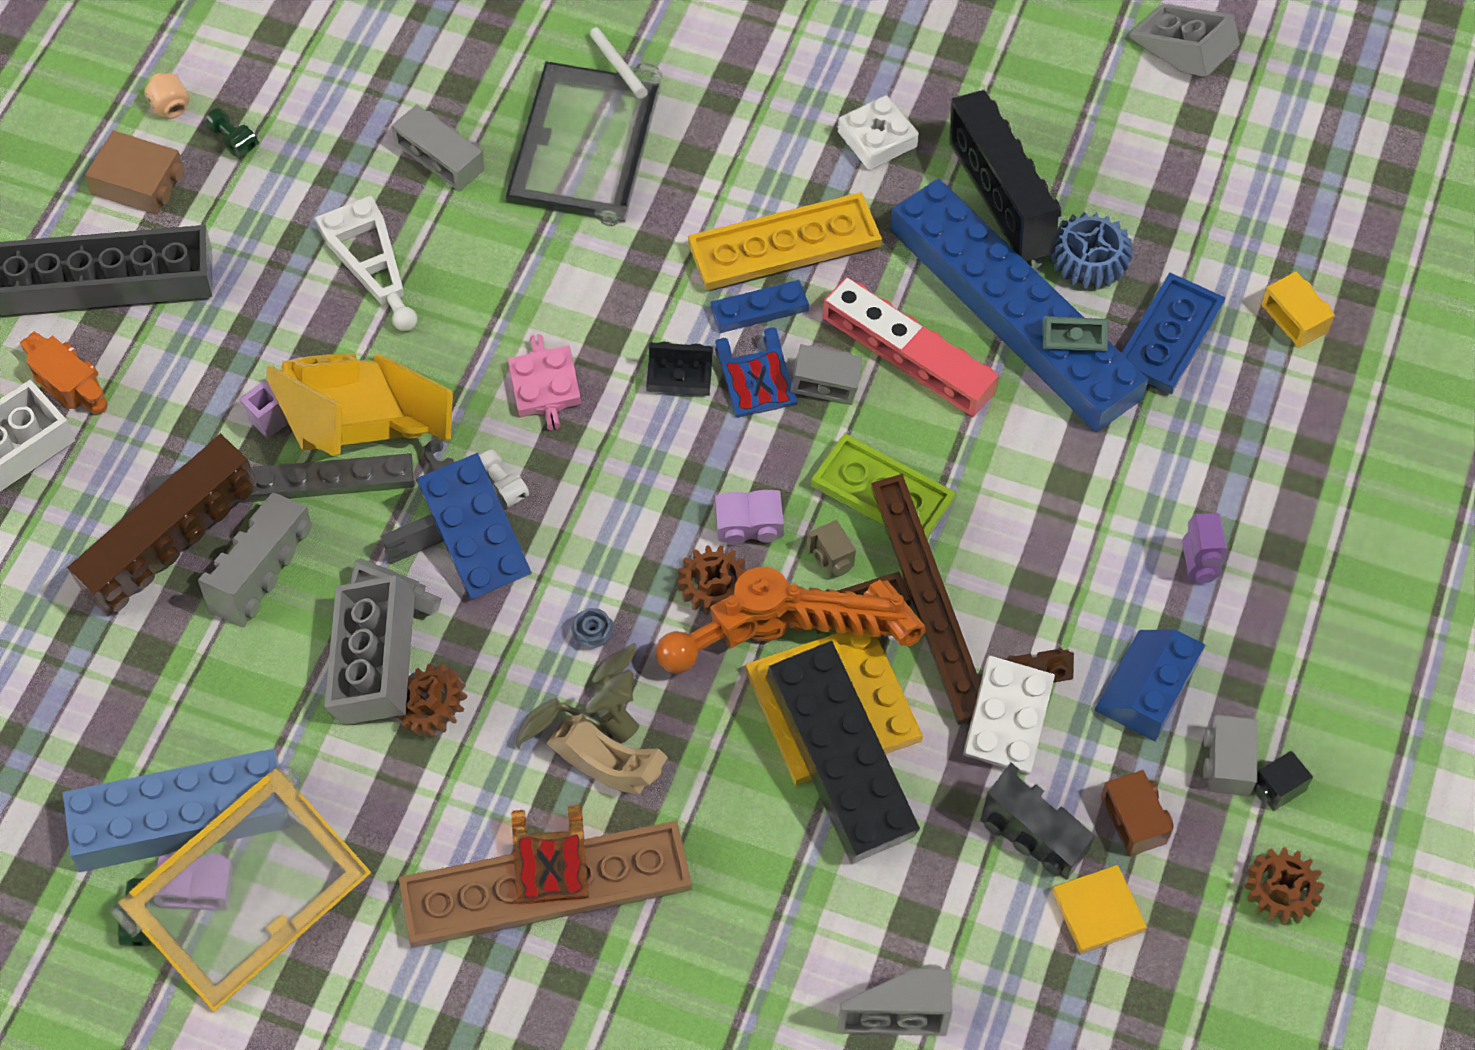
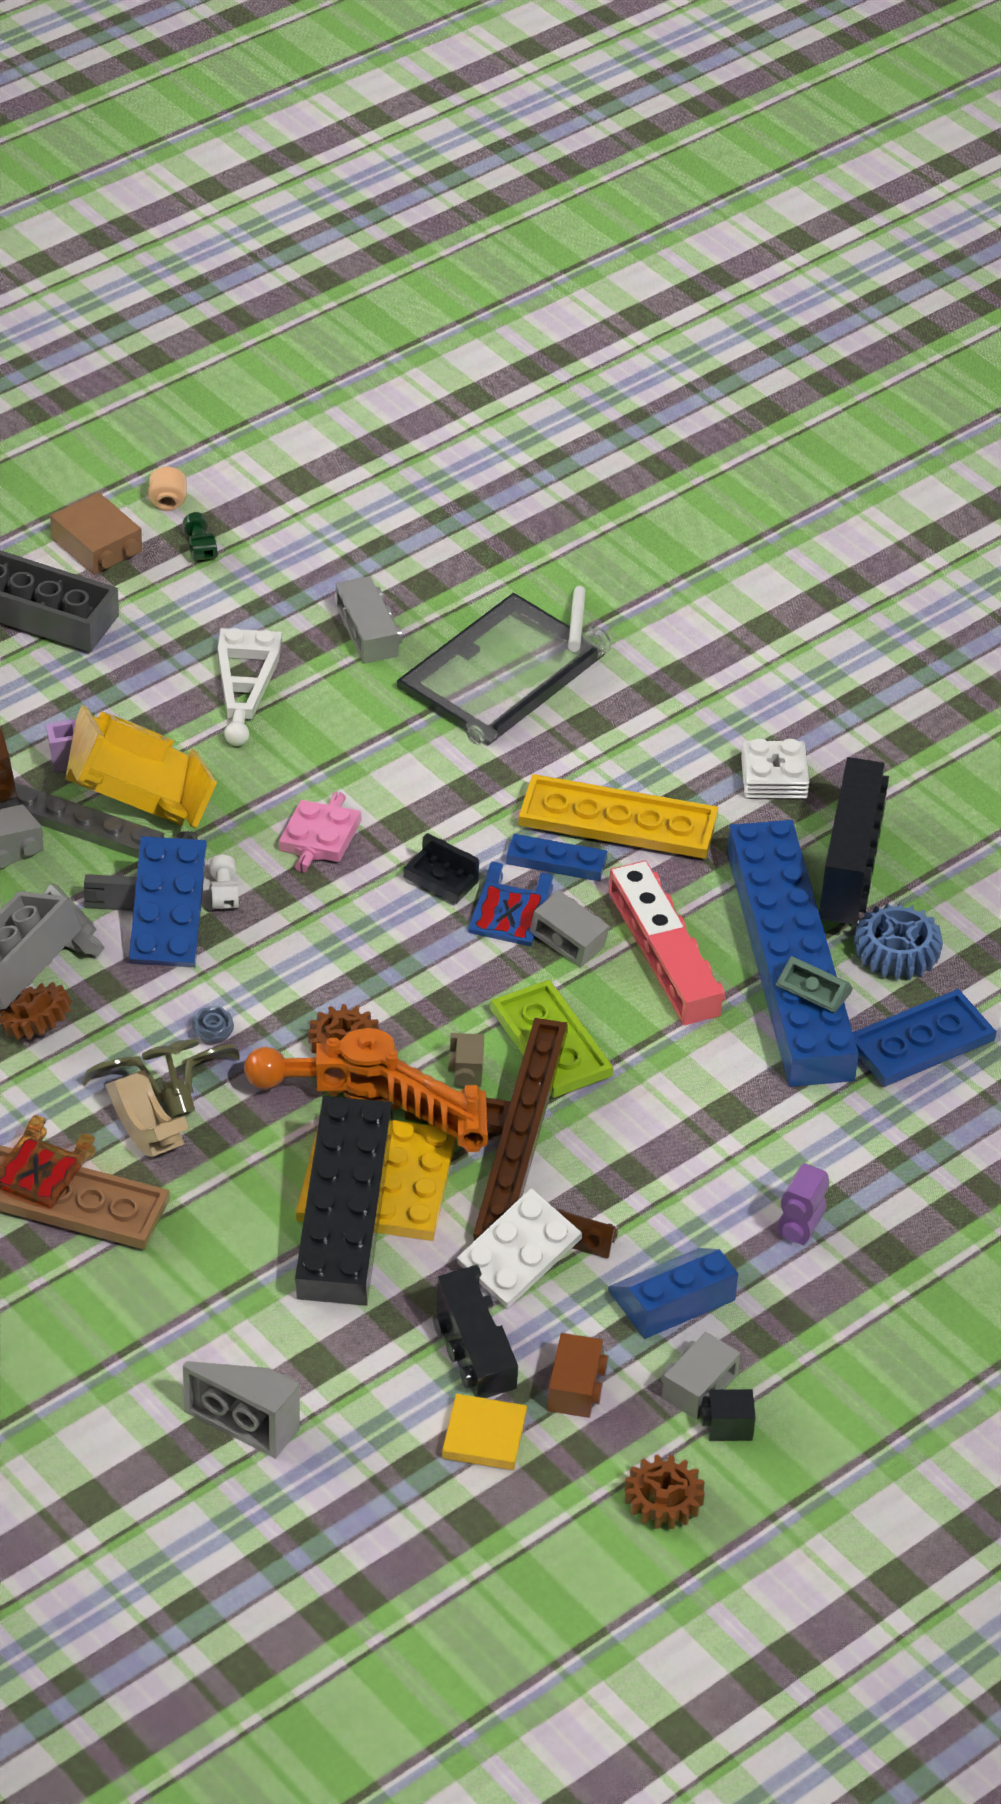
camera: 30 degrees right, 15 degrees down
(749, 516) = (414, 1004): lavender brick -> none

